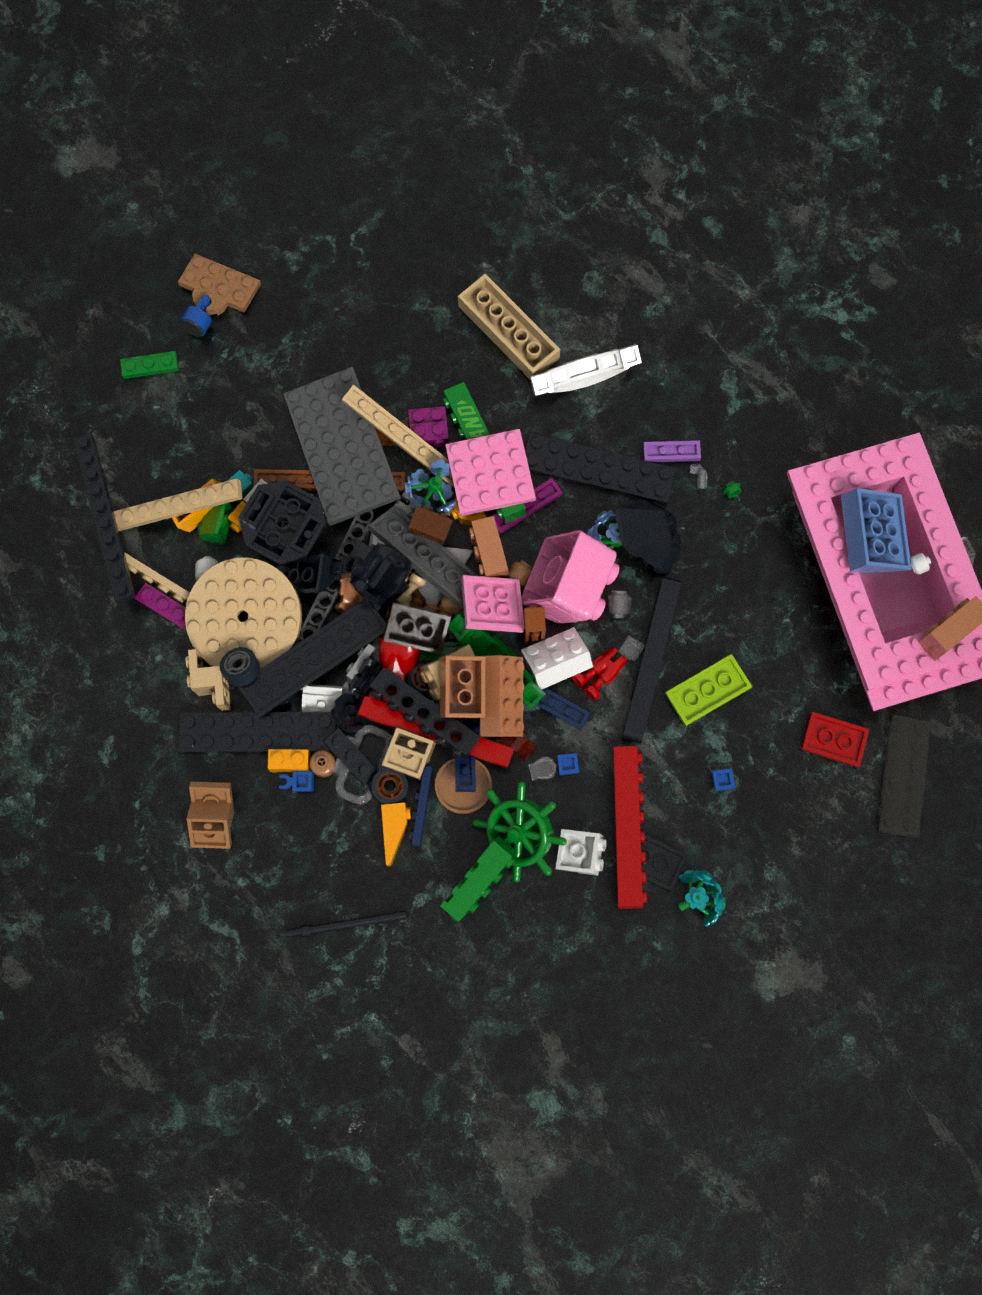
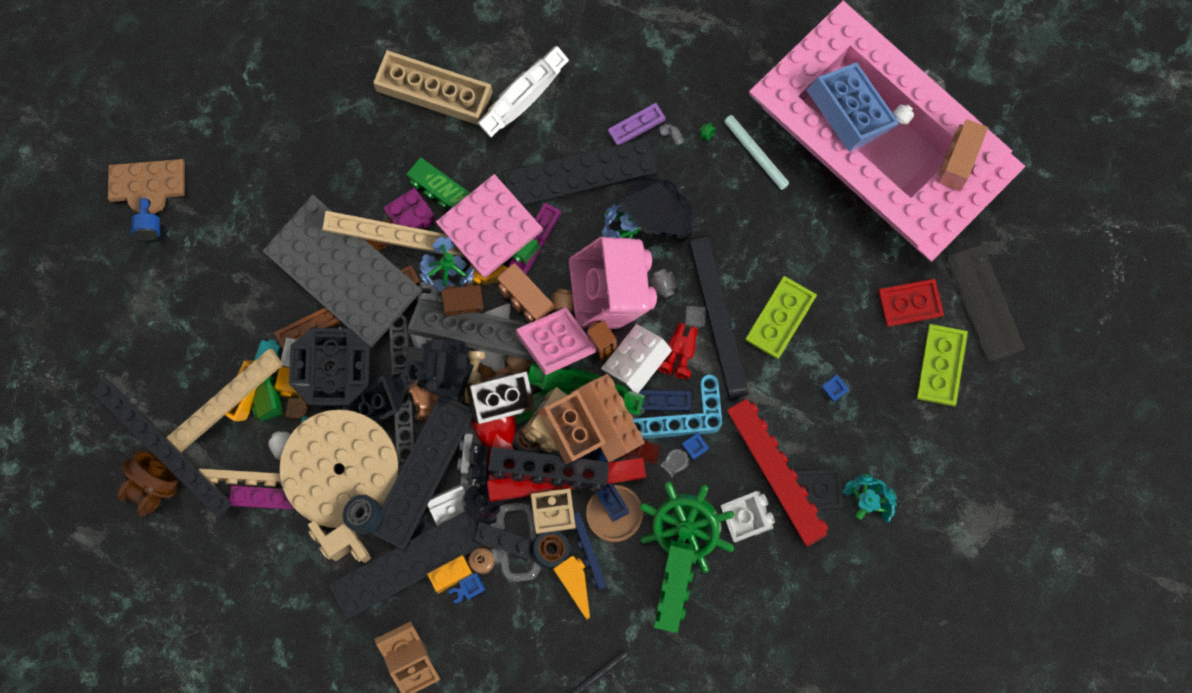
camera: 25 degrees left, 0 degrees up
(74, 540) = (146, 482): none -> reddish brown piece
(149, 364) = (123, 288): green plate -> none
(236, 545) = (296, 408): none -> clear orange plate
(570, 735) = (682, 420): none -> medium azure beam
(767, 531) = (756, 152): none -> light aqua axle
(833, 811) = (942, 365): none -> lime plate

